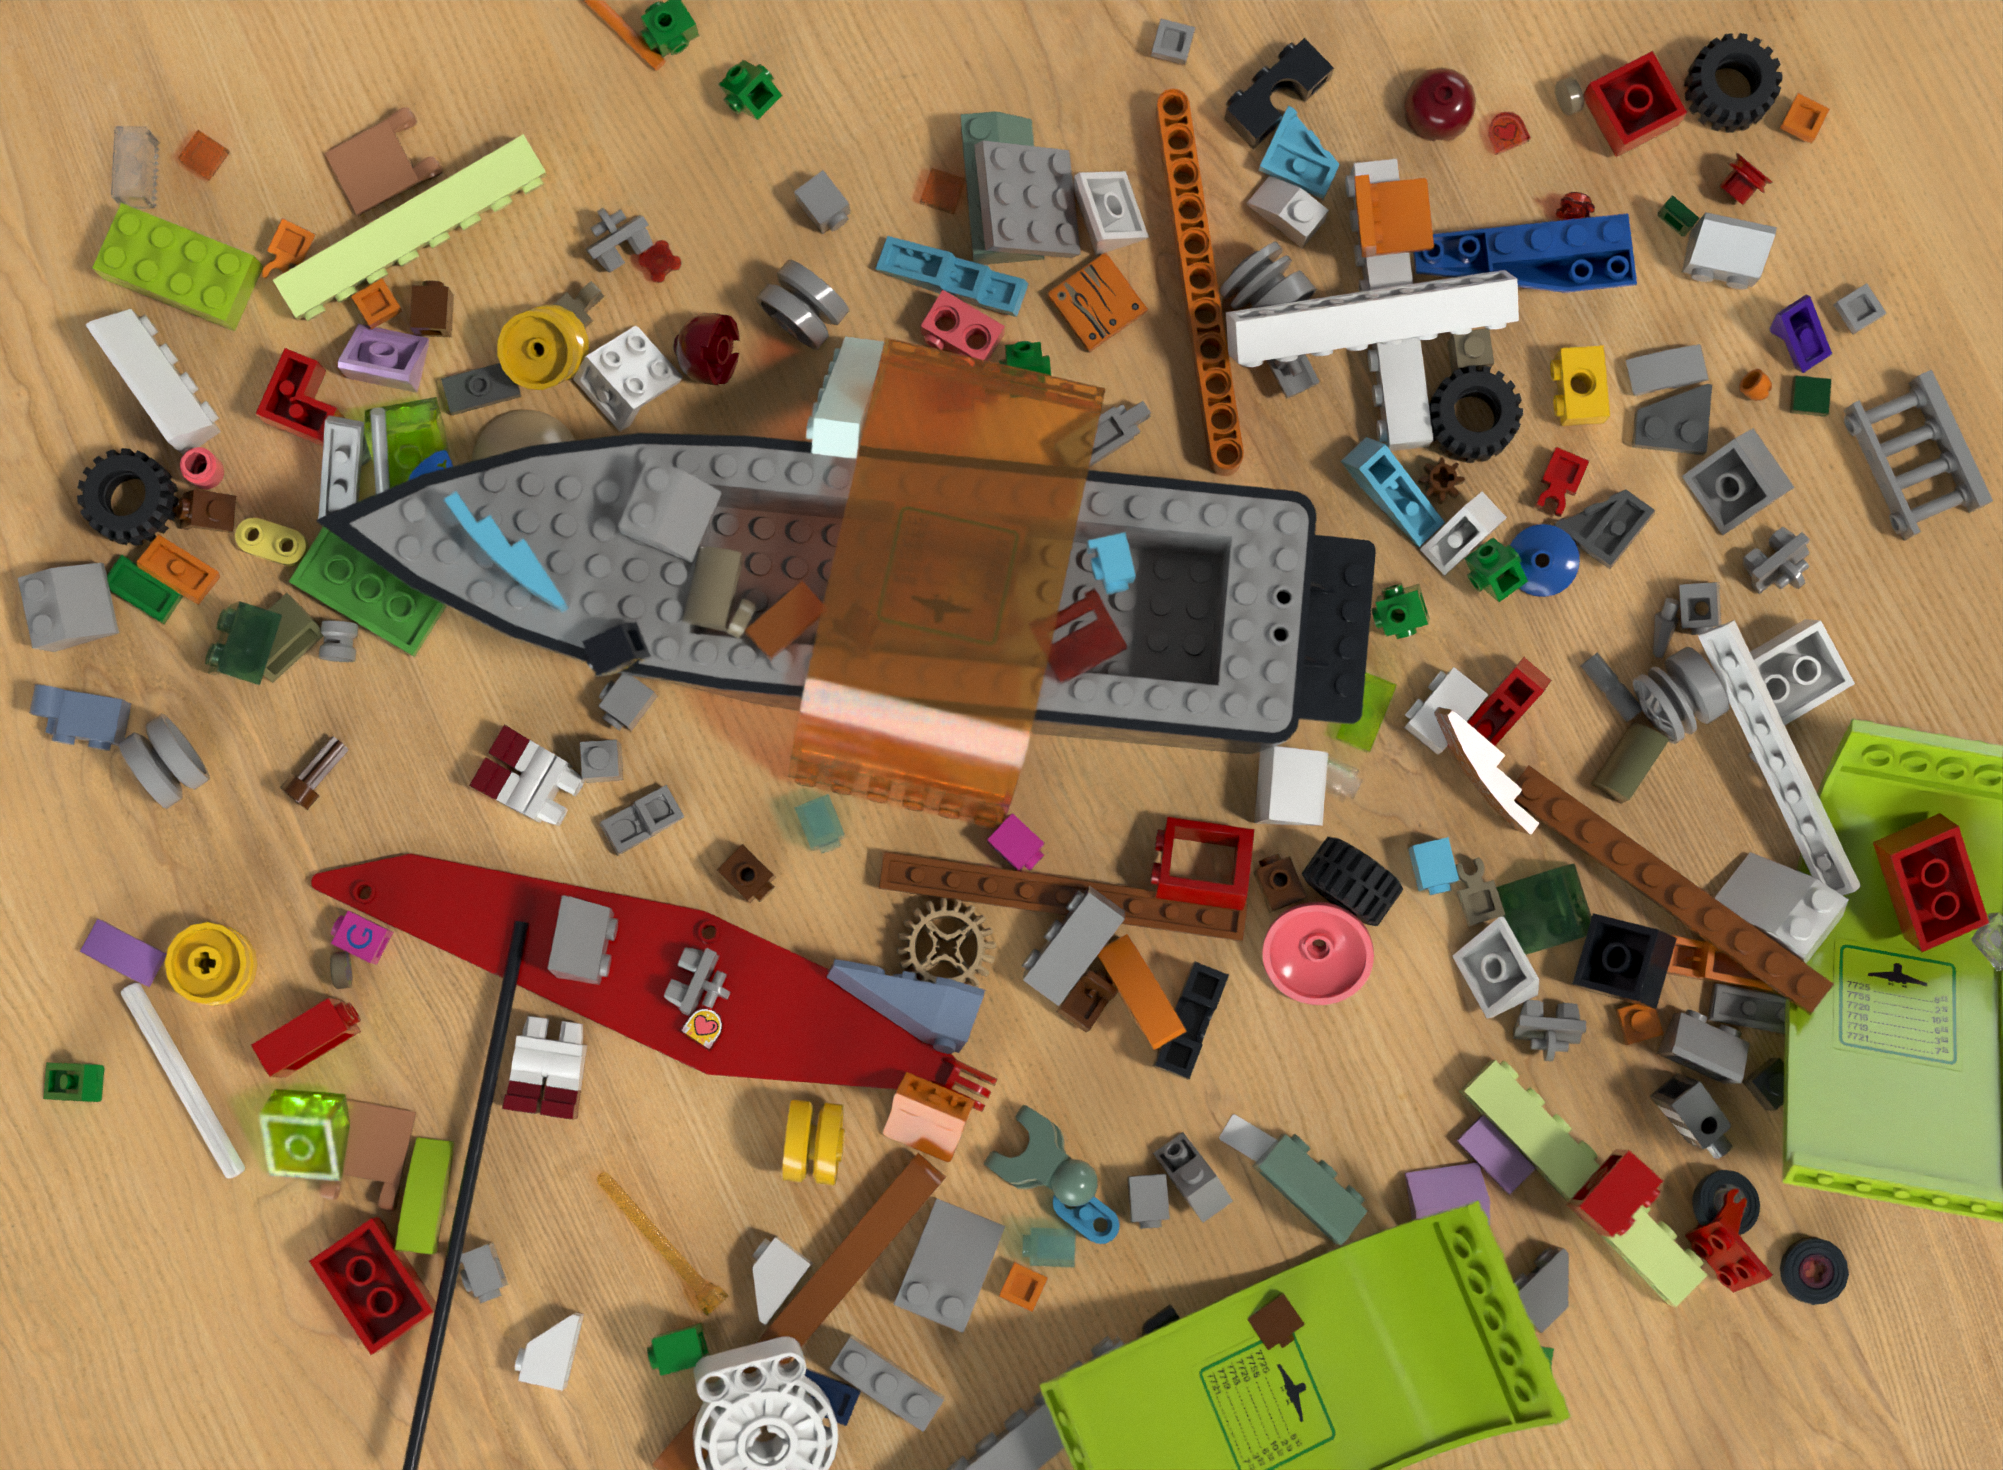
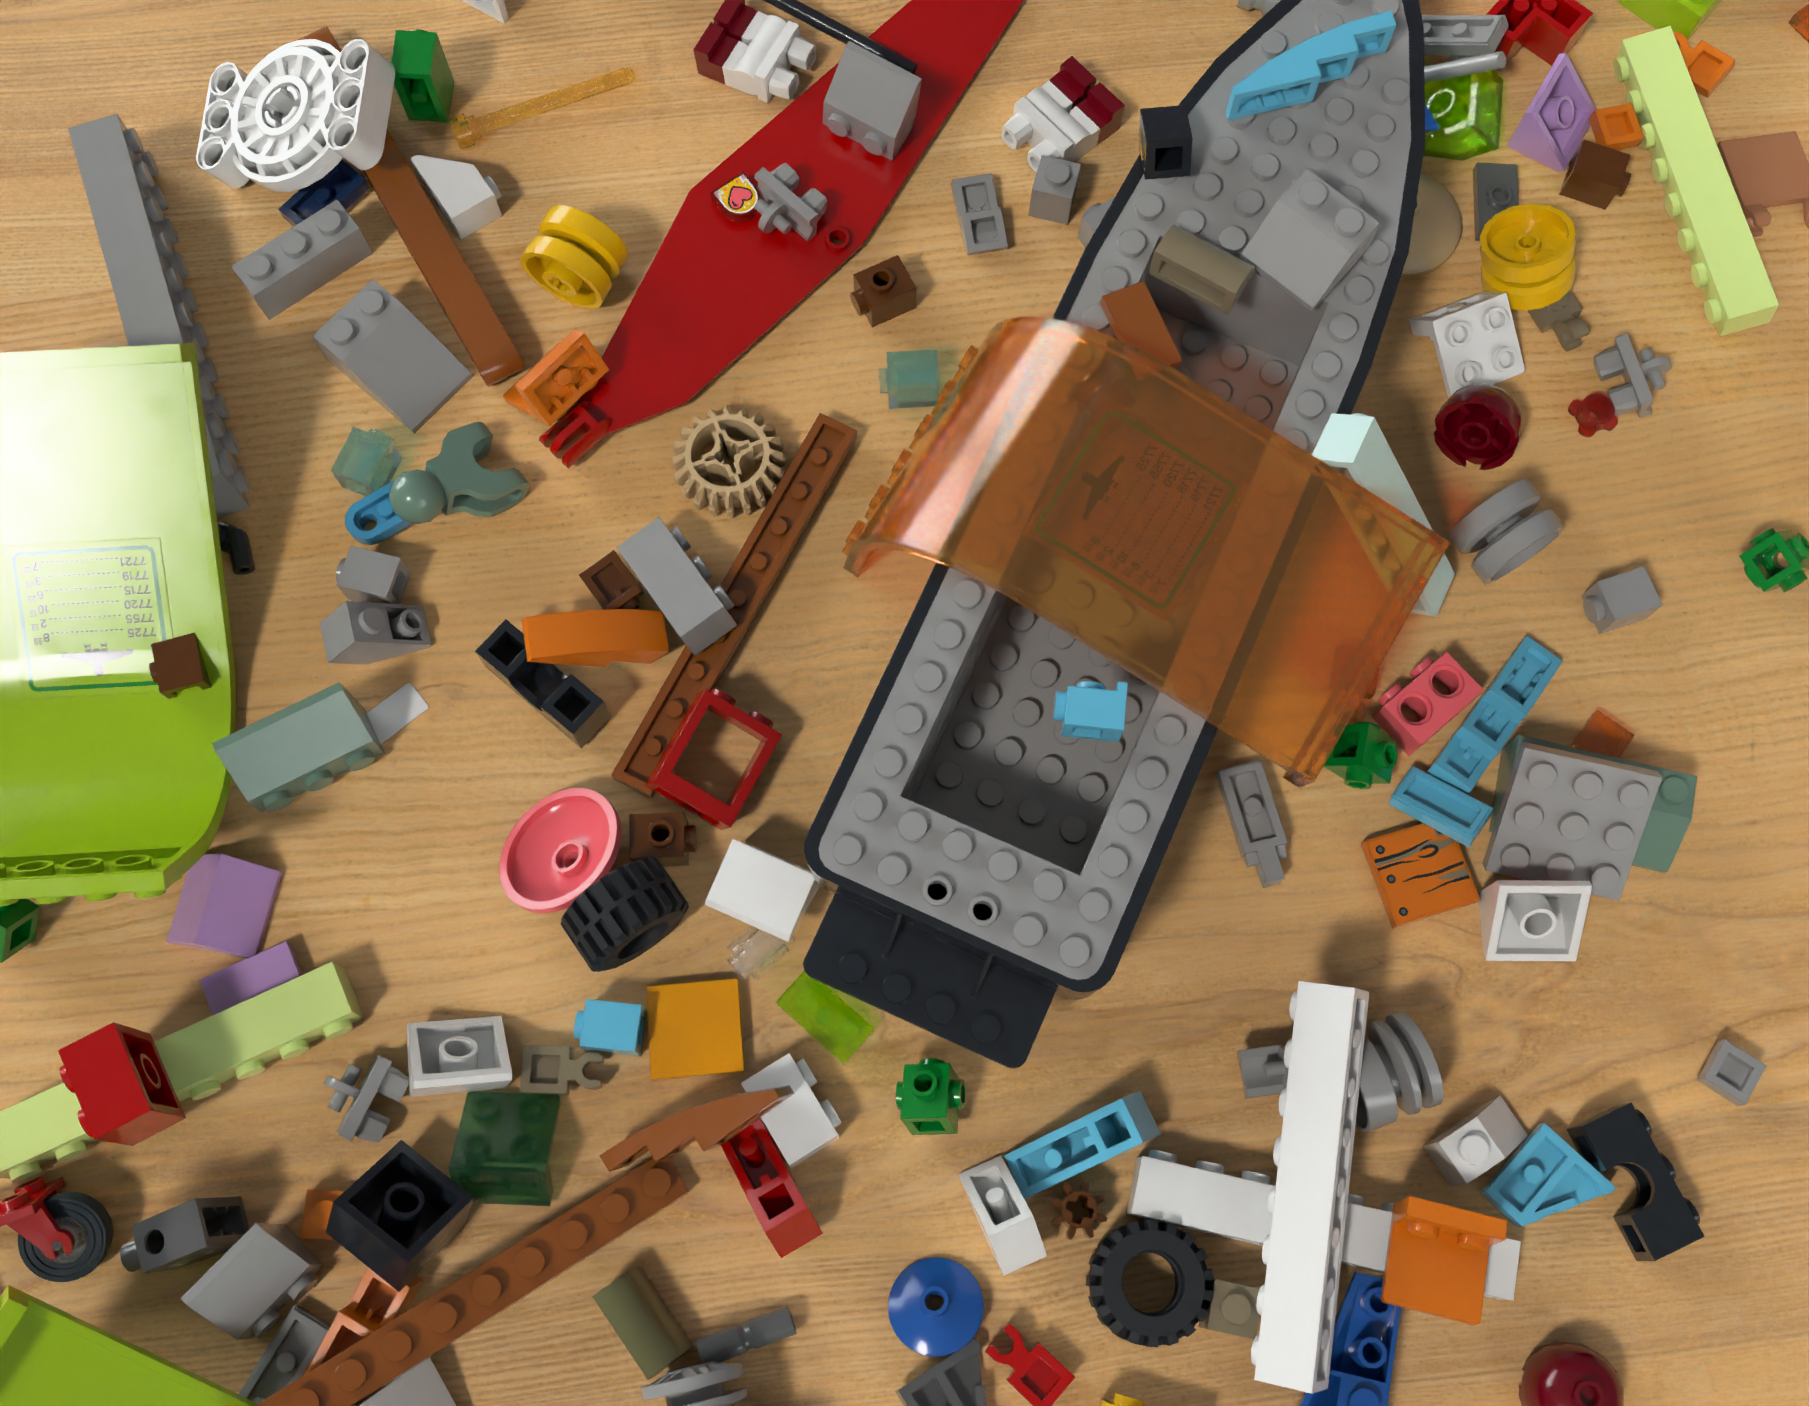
camera: 110 degrees right, 10 degrees down
(741, 618) = (1159, 281): dark tan tile -> none
(932, 1012) = (663, 412): sand blue wedge -> none
(1017, 844) = (814, 569): dark pink brick -> none
(1023, 1286) = (337, 420): orange plate -> none
(1043, 299) = (1441, 806): none -> medium azure tile
(1087, 645) = (1000, 650): clear red plate -> none
(1203, 265) = (1437, 992): orange beam -> none
(1410, 805) = (695, 1029): none -> light orange tile
(1495, 569) = (942, 1236): green brick -> none
(1545, 1288) = (73, 973): light grey slope -> none
(1768, 1084) = (186, 1346): black brick -> none

